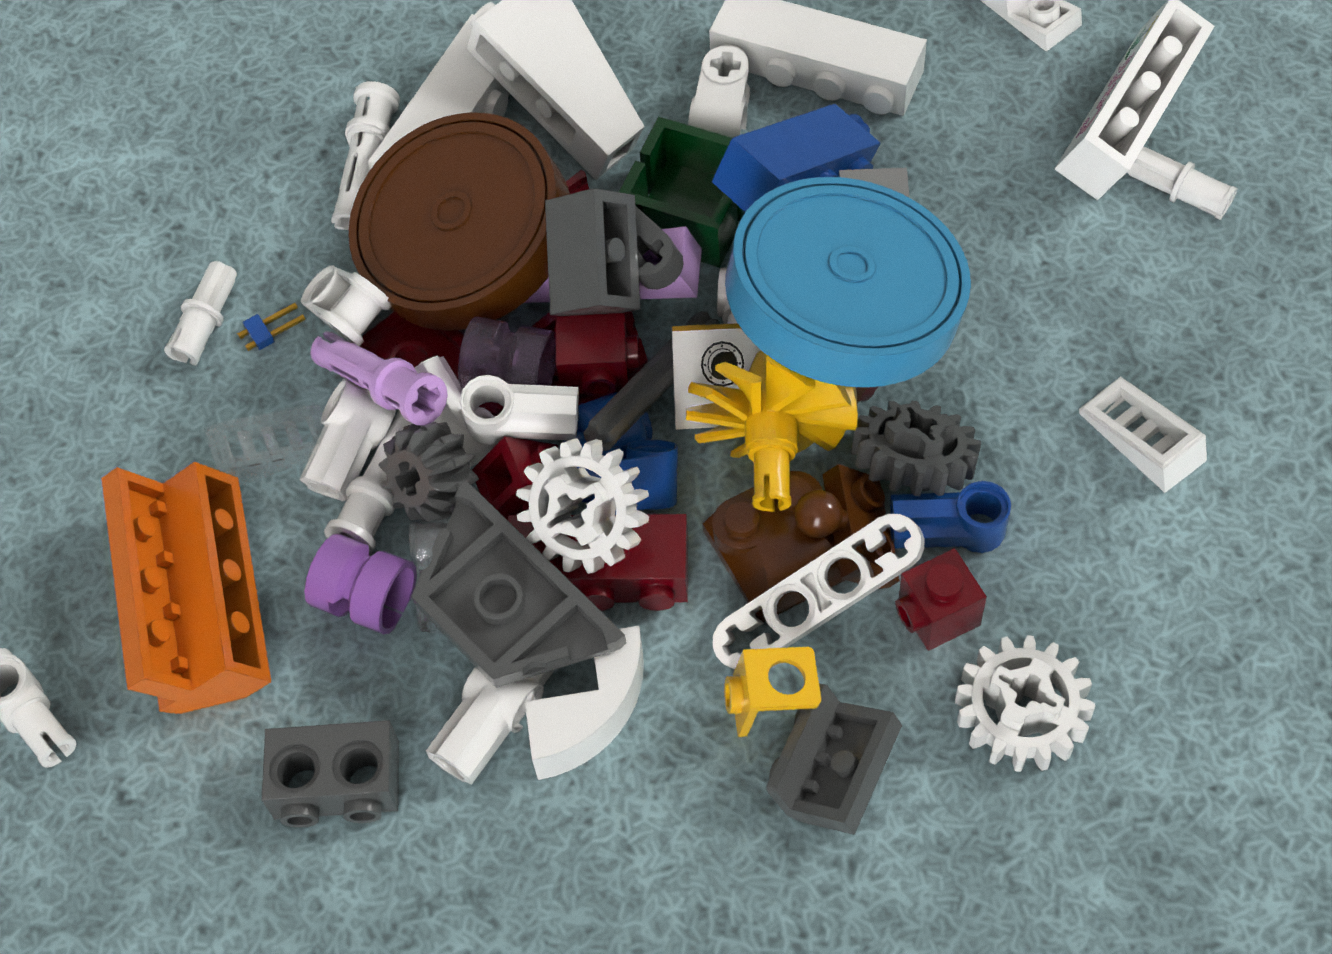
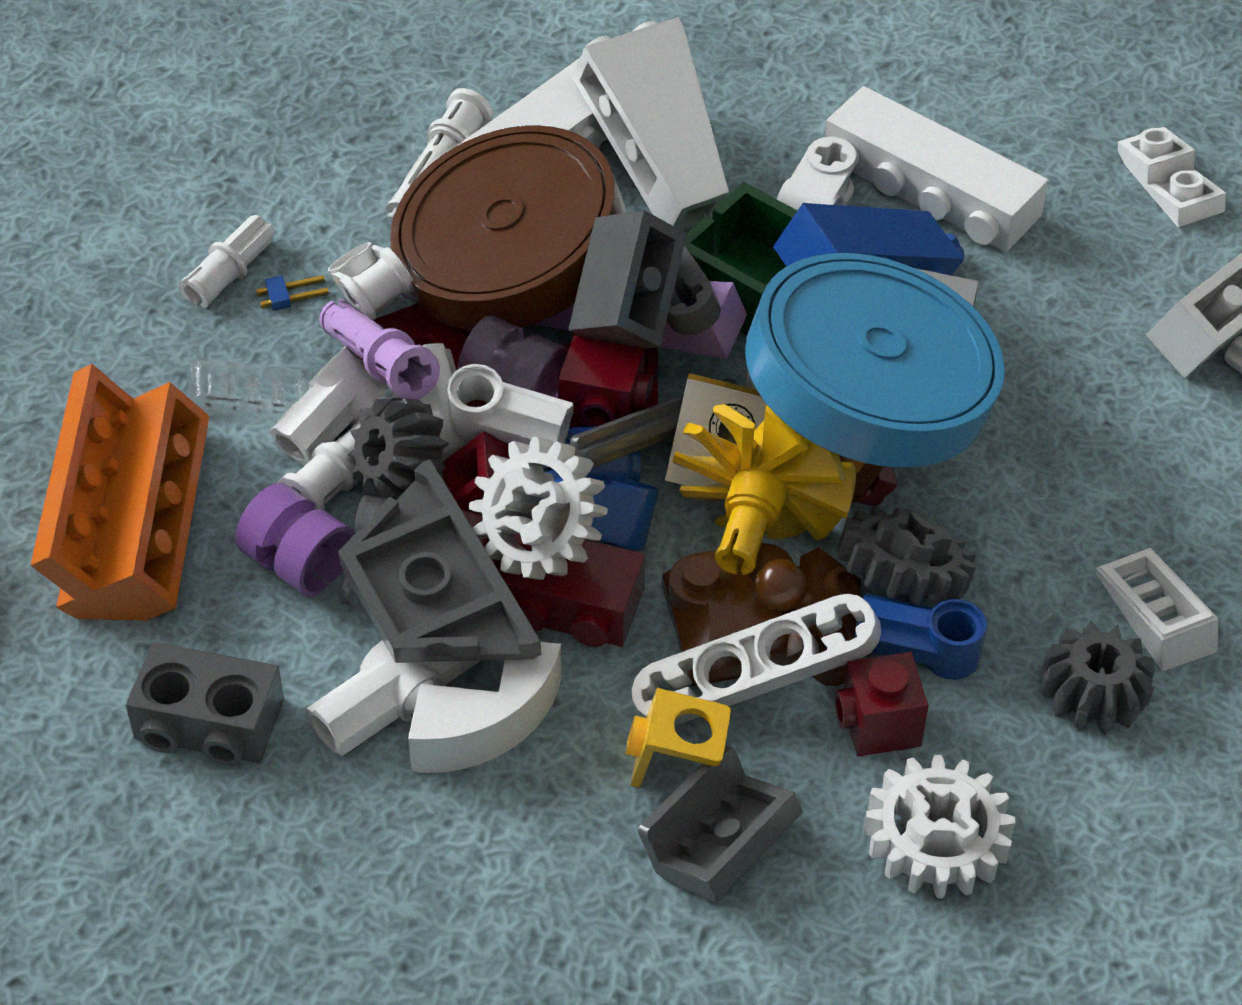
camera: 10 degrees right, 10 degrees down
(1093, 522) = (1098, 677): none -> dark grey gear

